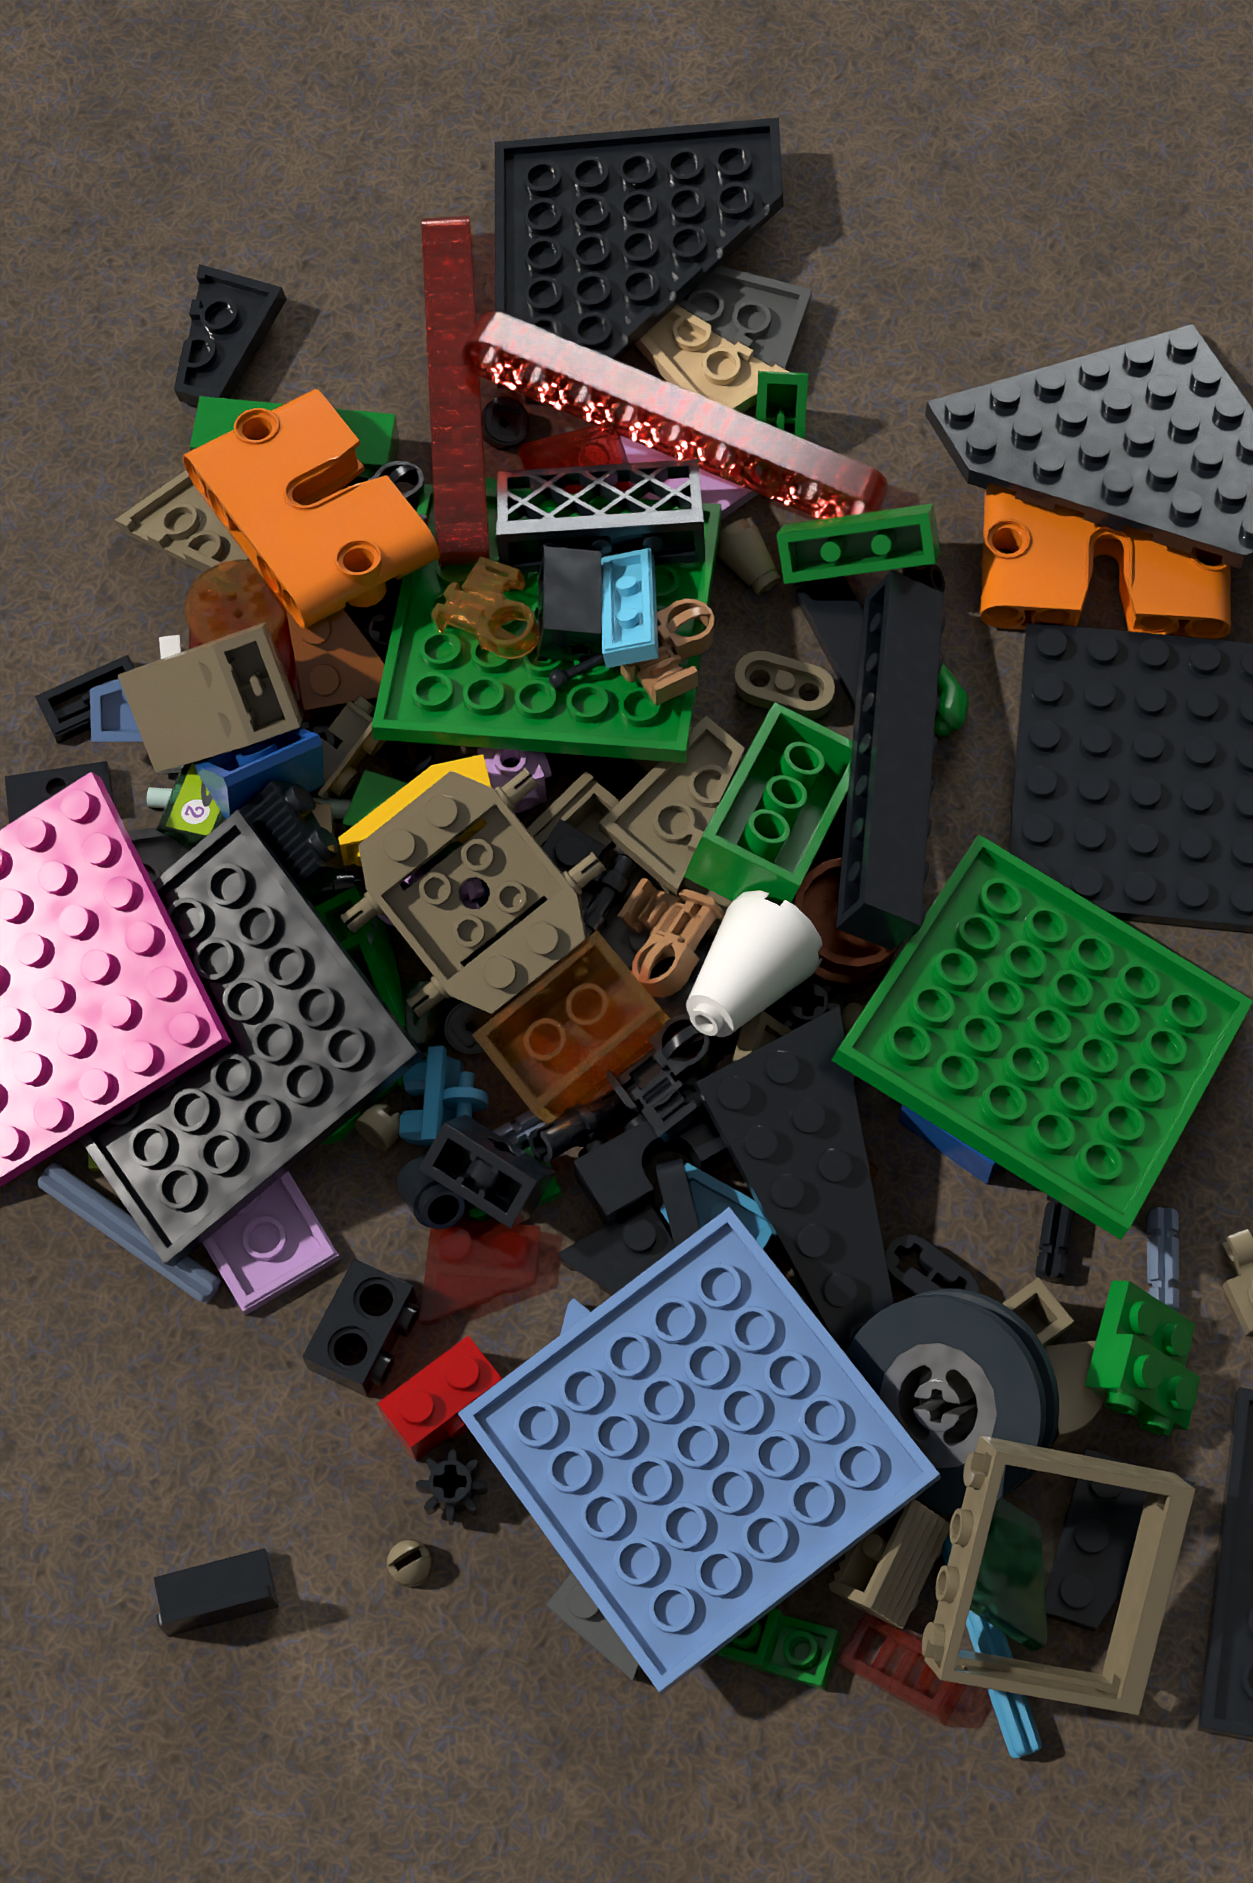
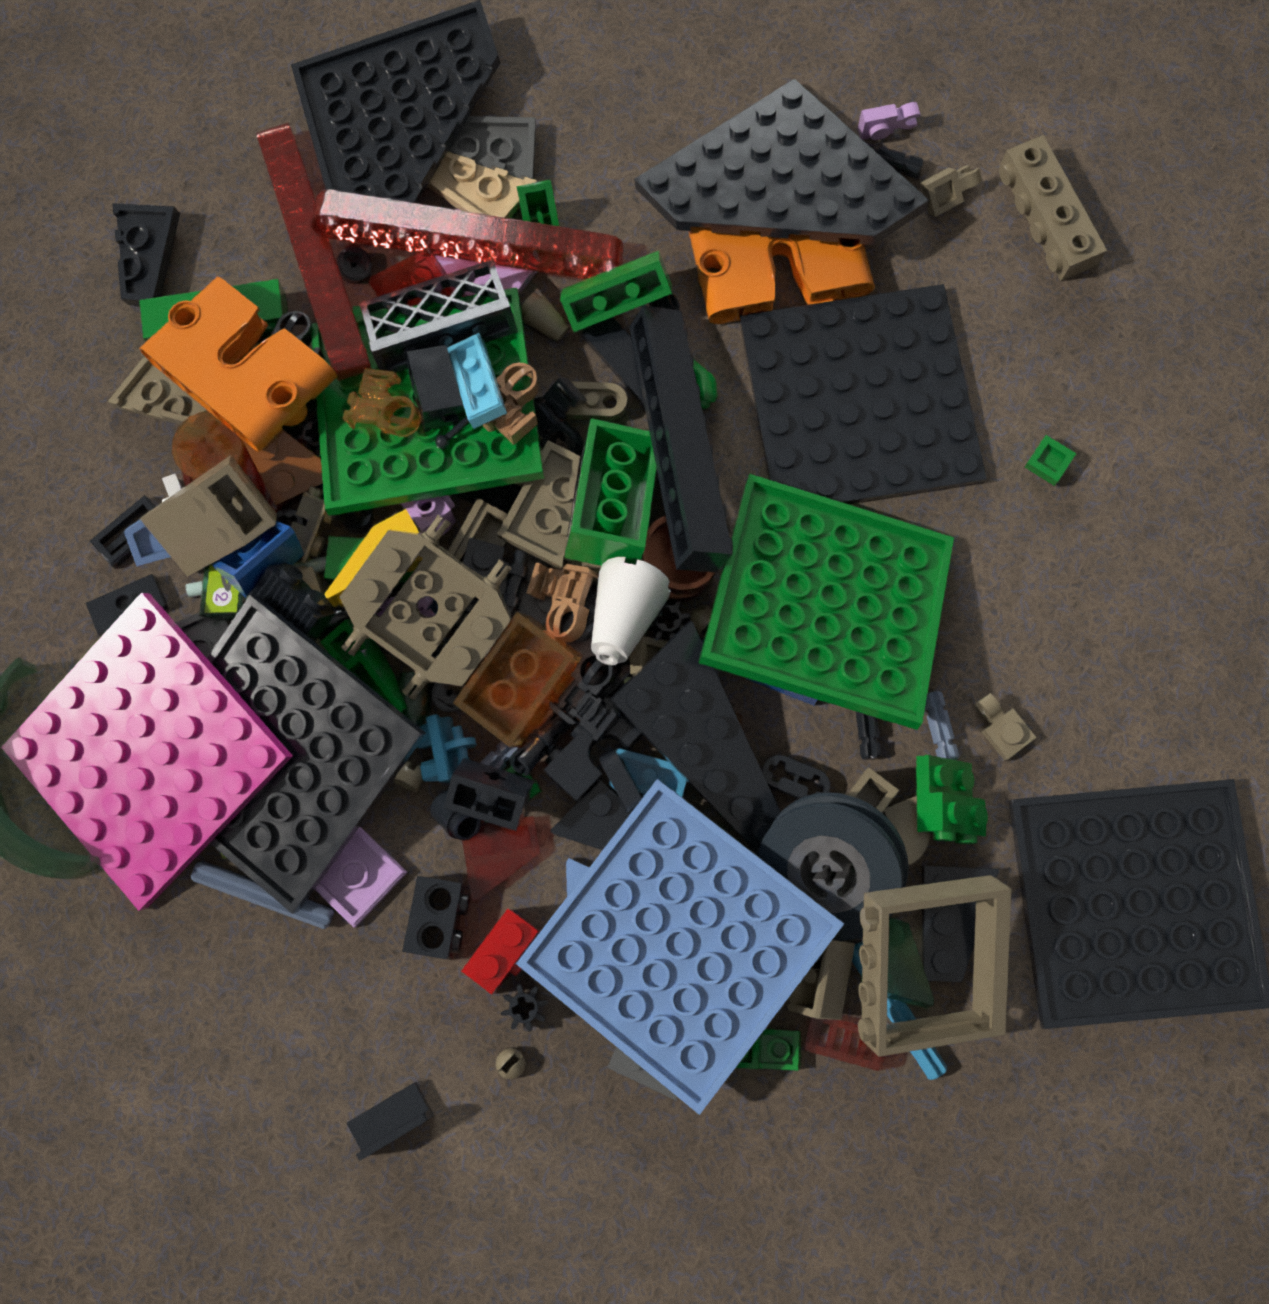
camera: 15 degrees left, 10 degrees up
(723, 680) = (553, 411): none -> black piece

